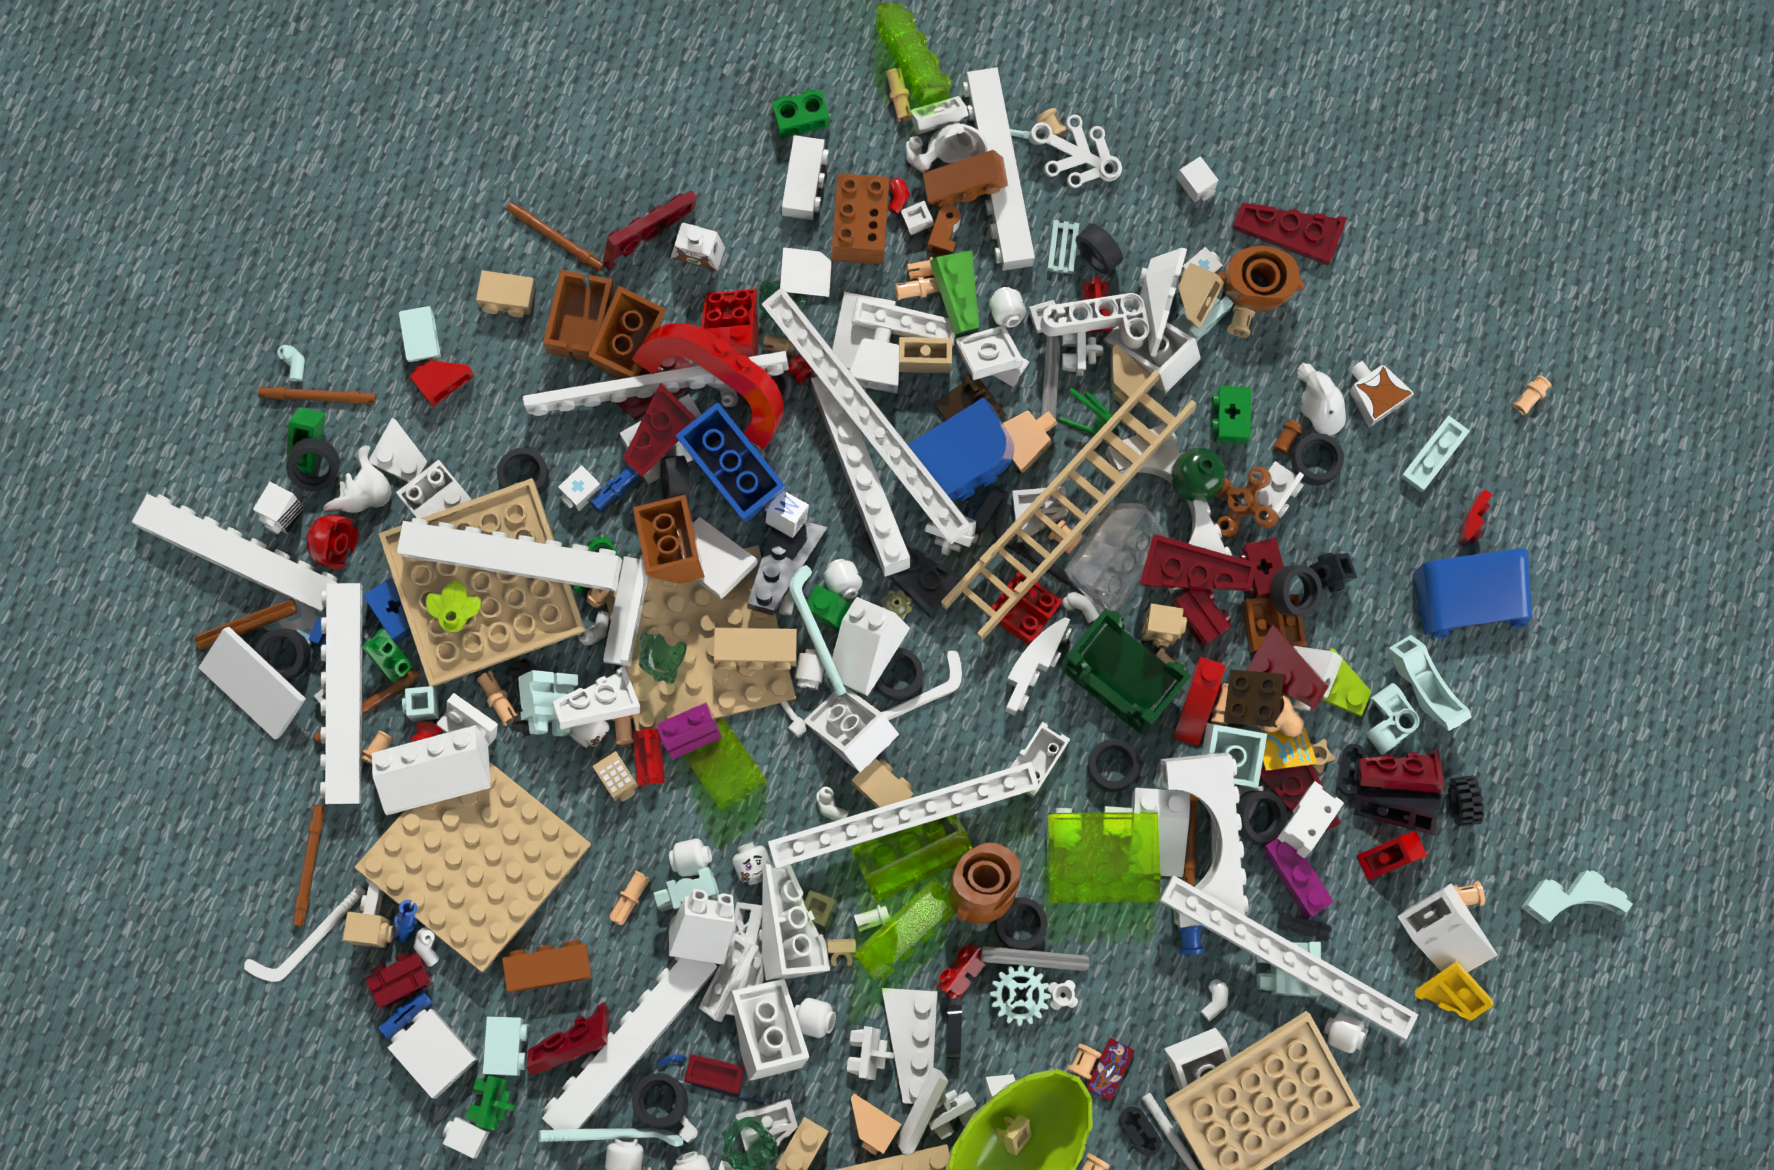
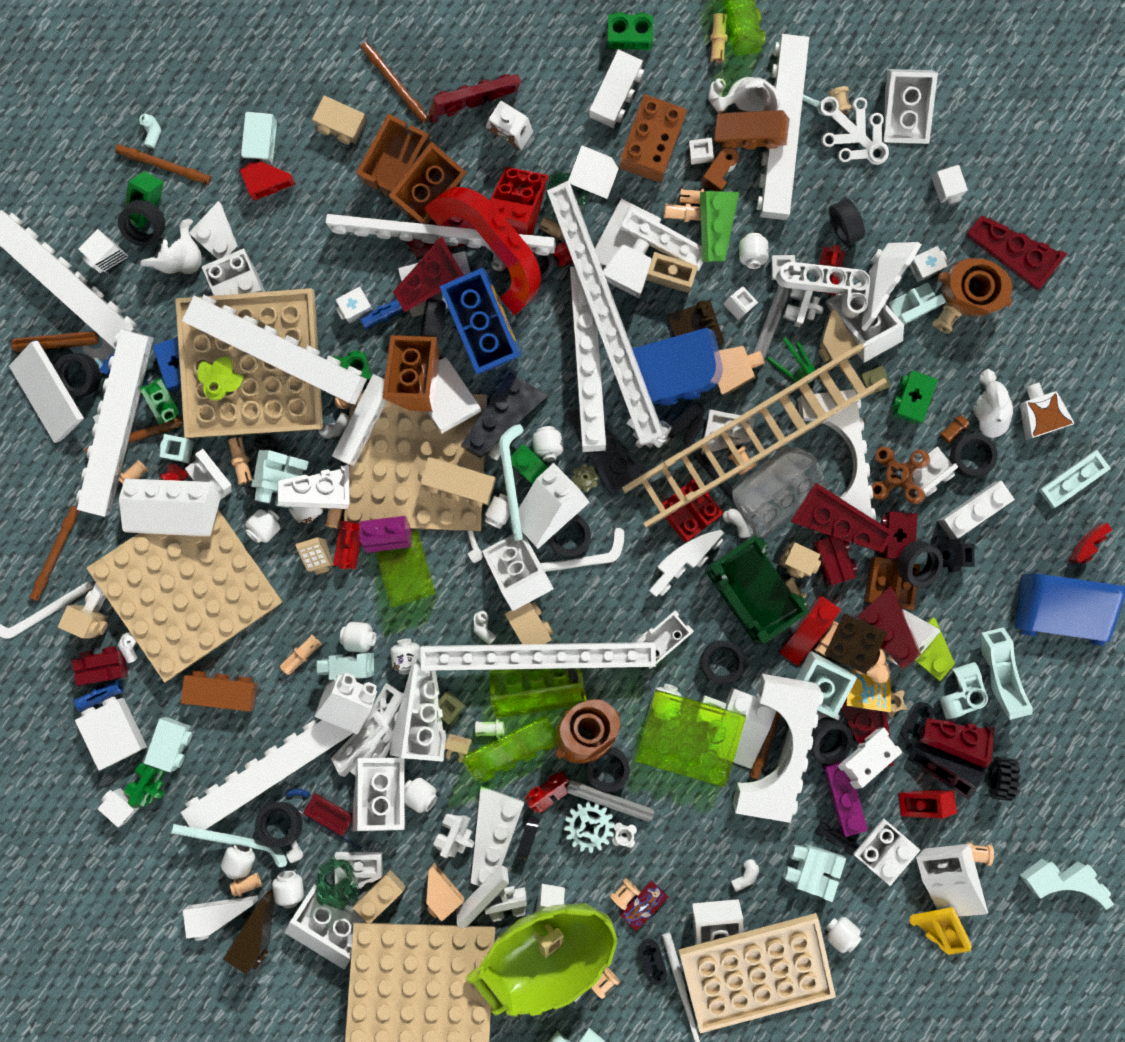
camera: 25 degrees right, 10 degrees up
(331, 535) = (138, 290): red cylinder -> none
(405, 921) = (115, 623): blue pin -> none
(523, 454) = (306, 262): black tyre -> none
(544, 763) = (262, 525): none -> white head
(581, 1038) = (221, 759): dark red wing -> none
(657, 654) = (378, 464): clear green helmet -> none
(786, 513) = (516, 376): white brick -> none
(900, 193) = (693, 126): red arm -> none
(938, 115) = (746, 65): white bracket -> none
(989, 352) = (726, 285): white tile -> none
(1065, 226) = (824, 193): light aqua tile -> none
(1127, 110) = (909, 105): none -> white slope
(1180, 403) = (873, 376): none -> olive plate
(1191, 940) = (740, 825): blue bush -> none
(1198, 292) = (919, 284): tan slope -> none
(1198, 474) = (869, 442): dark green cylinder -> none
(1288, 958) = (815, 866): white plate -> none
(1338, 516) = (976, 510): none -> white brick
(1362, 922) = (886, 852): none -> white slope

